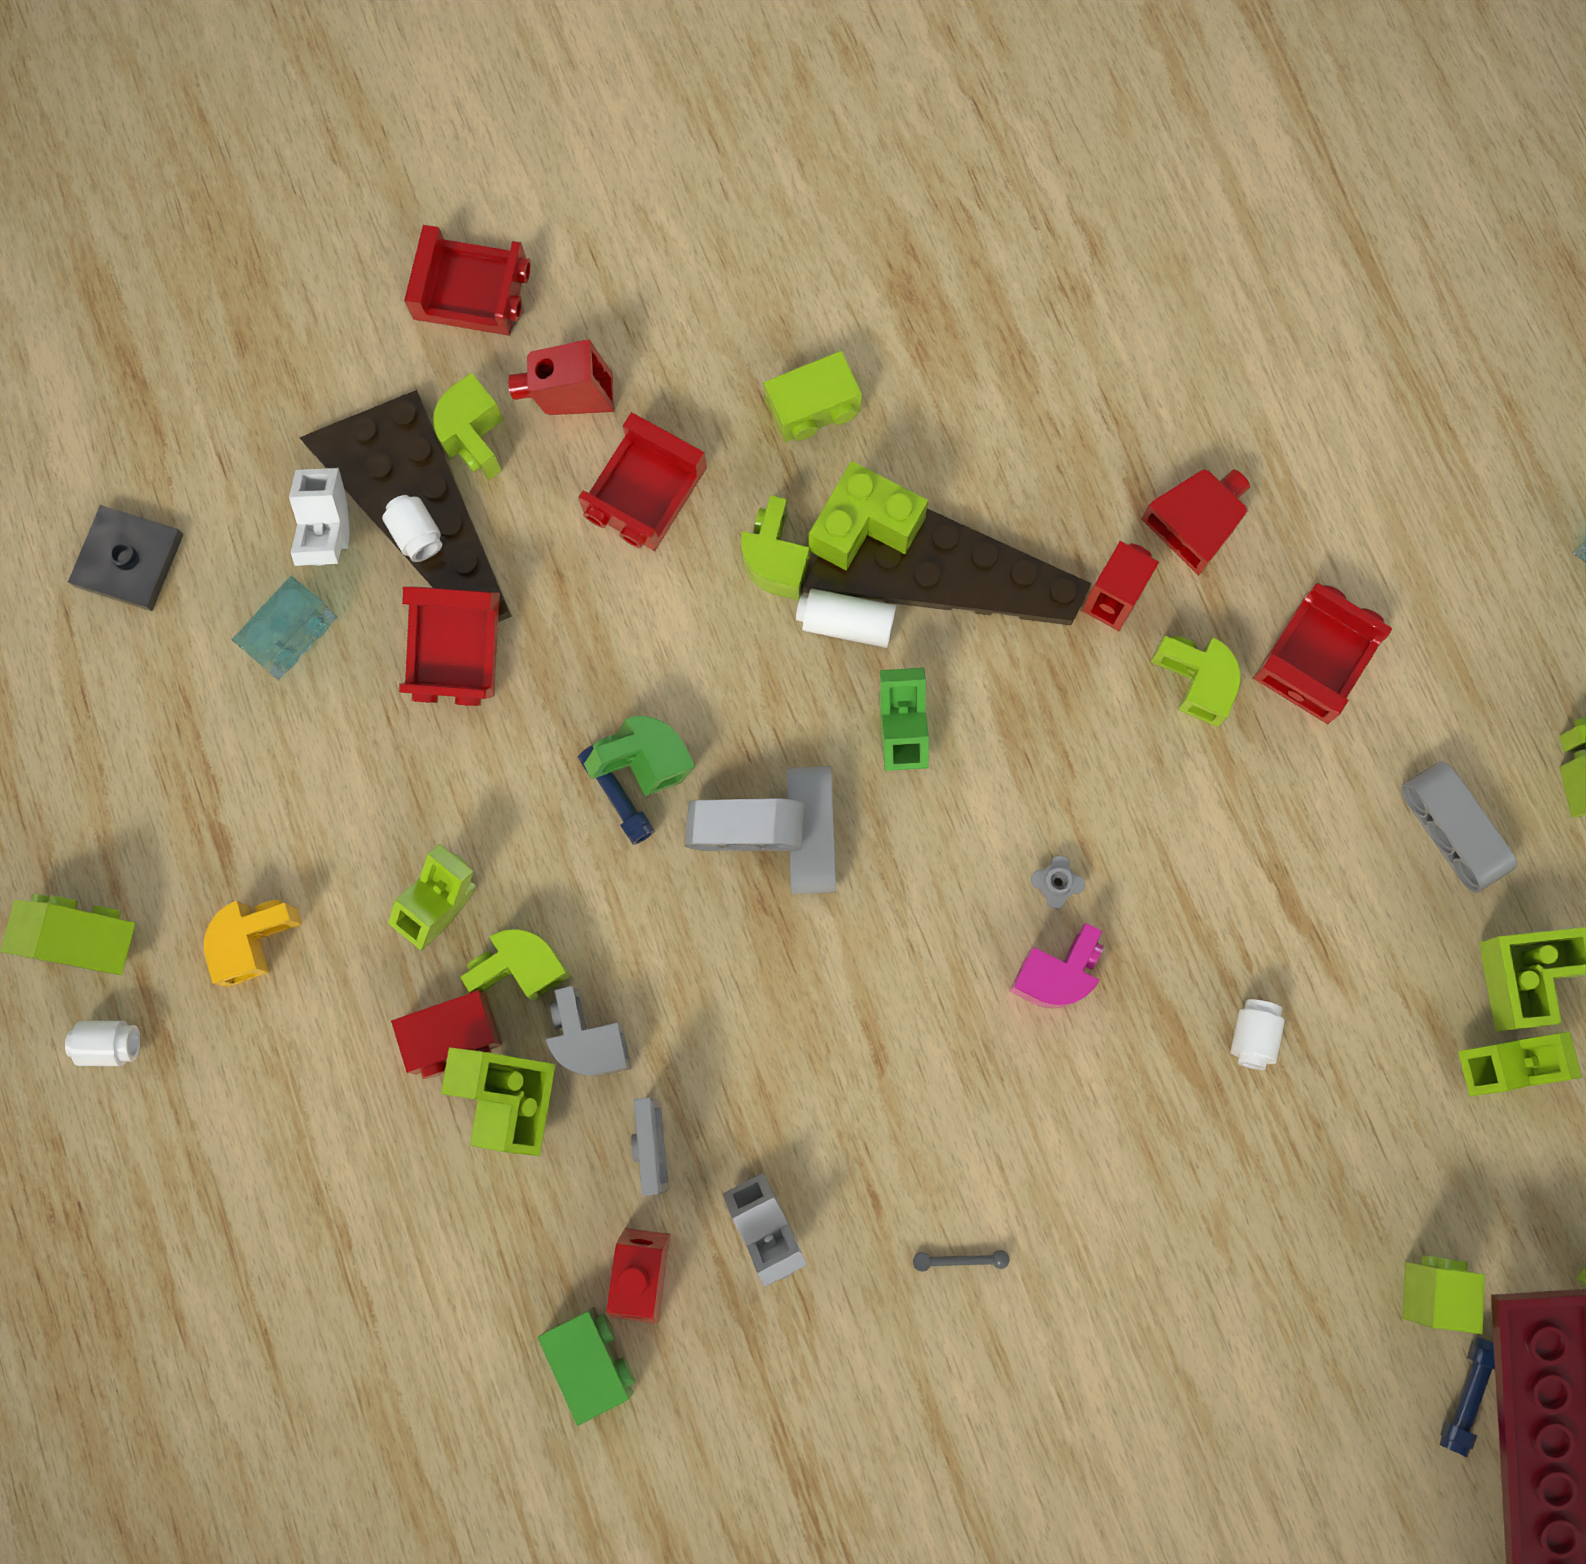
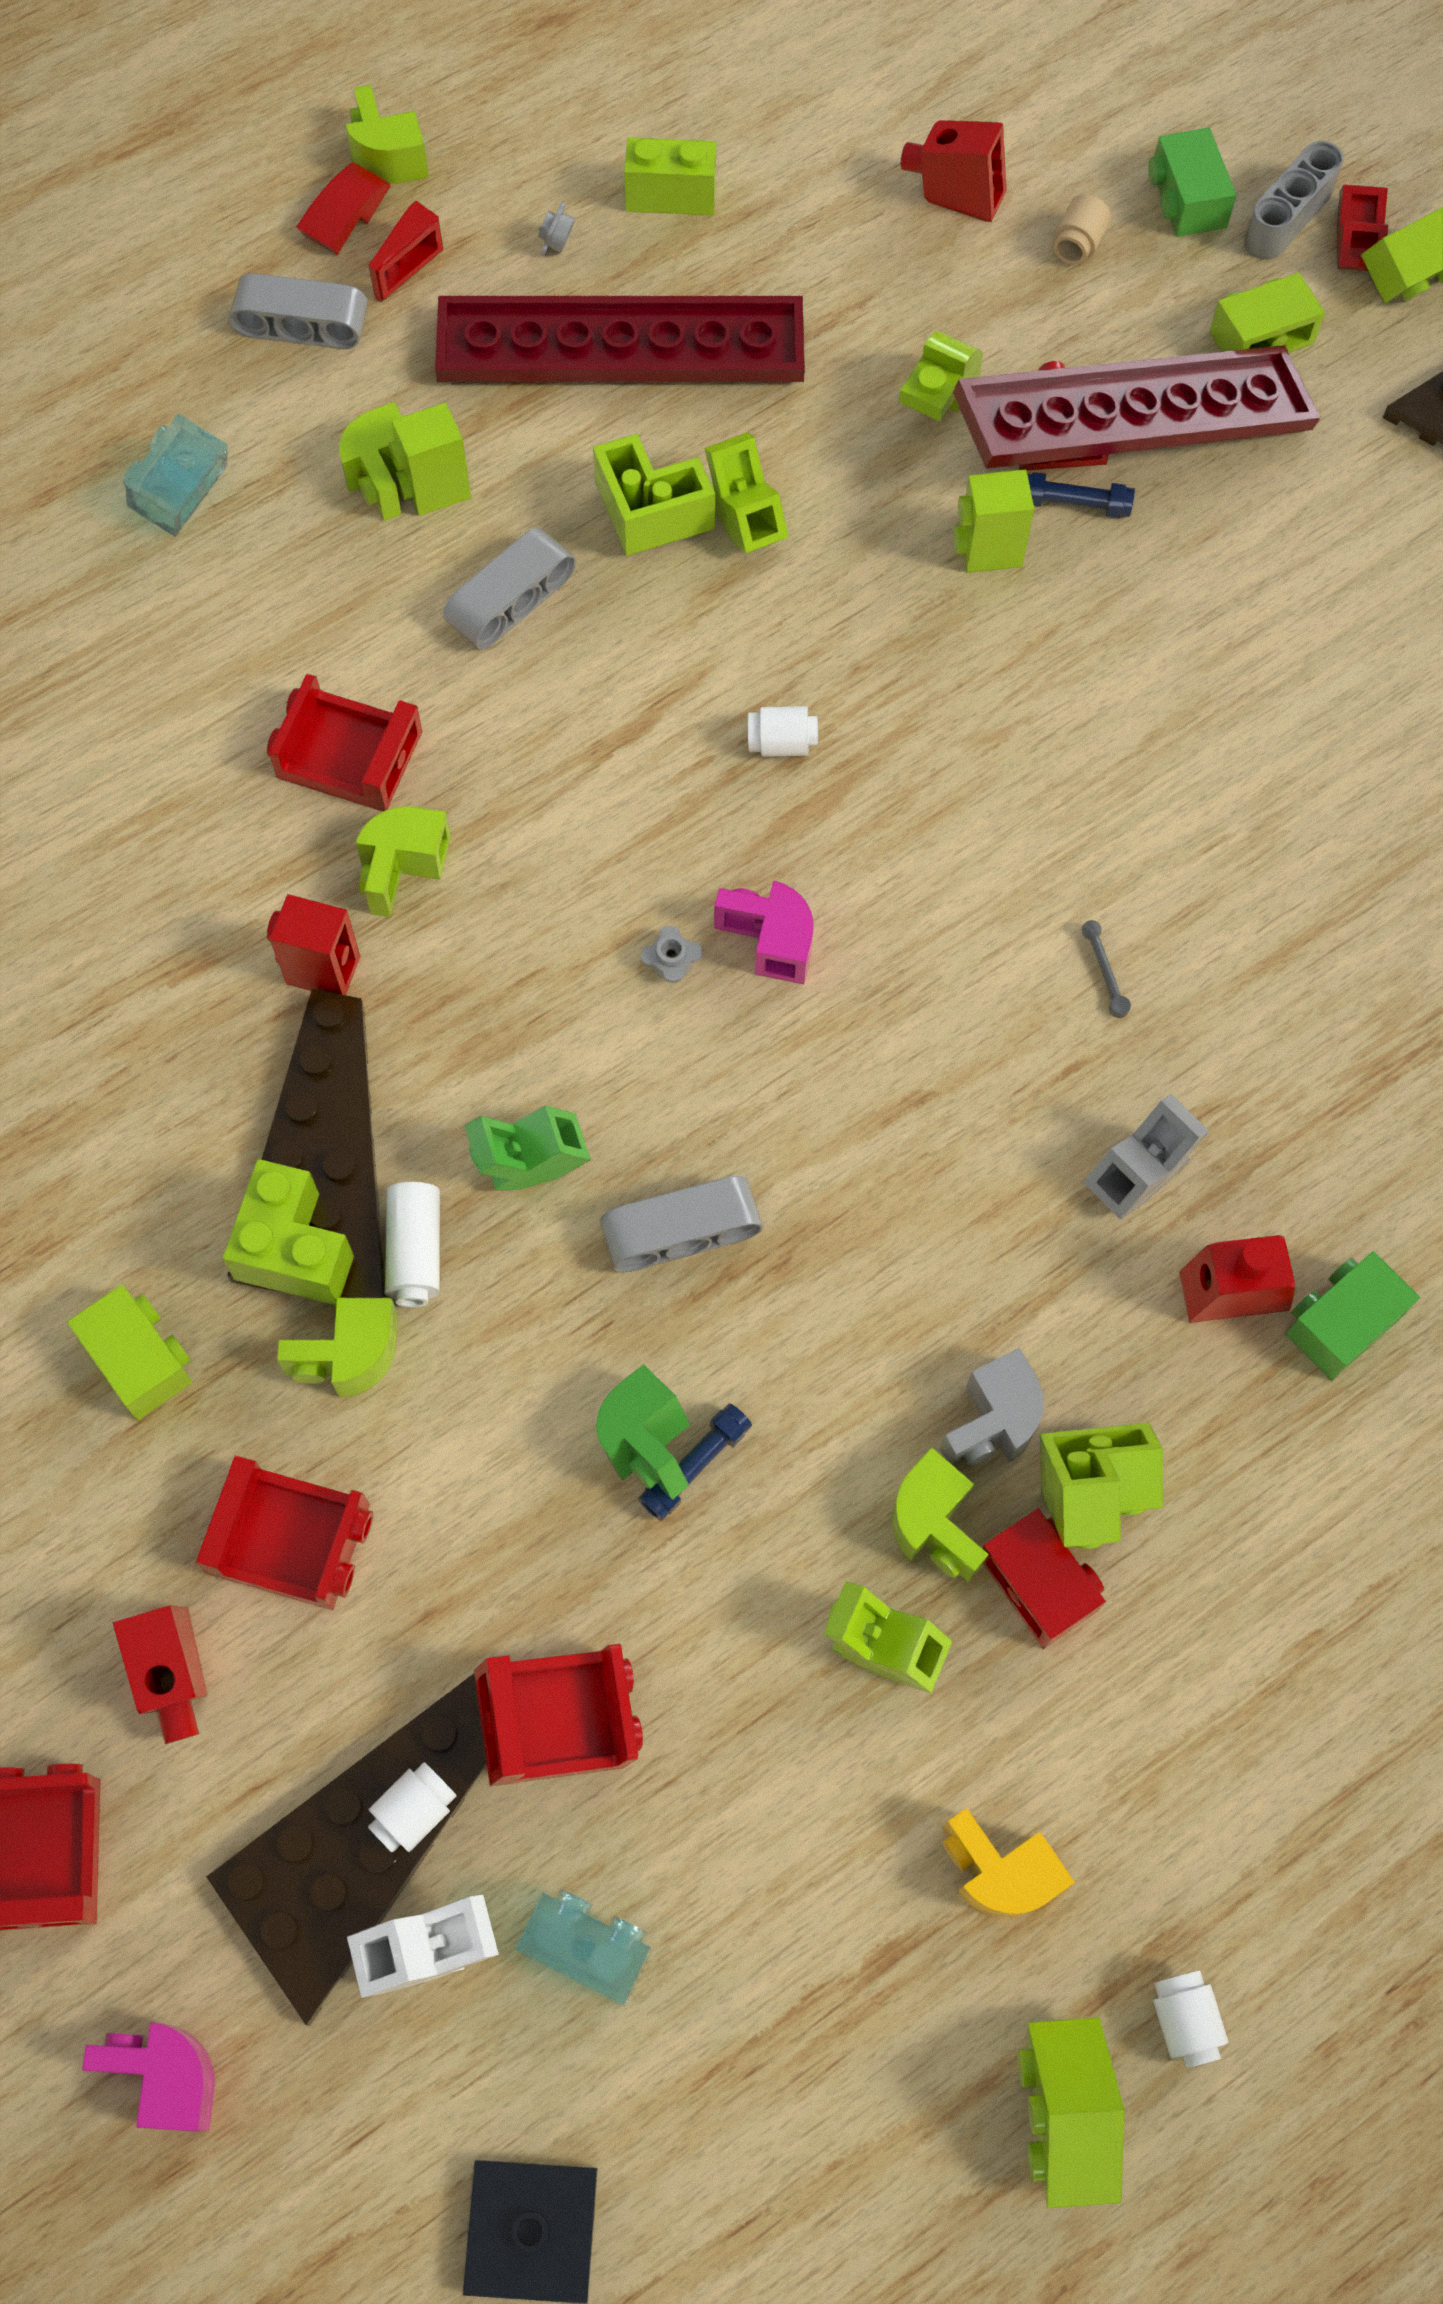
camera: 110 degrees left, 10 degrees down
(298, 347) = (175, 2073): none -> dark pink brick
(462, 419) = (246, 1799): lime brick -> none
(649, 1146) = (1099, 1296): light grey plate -> none
(745, 825) = (700, 1290): light grey beam -> none
(1198, 515) = (209, 890): red torso -> none

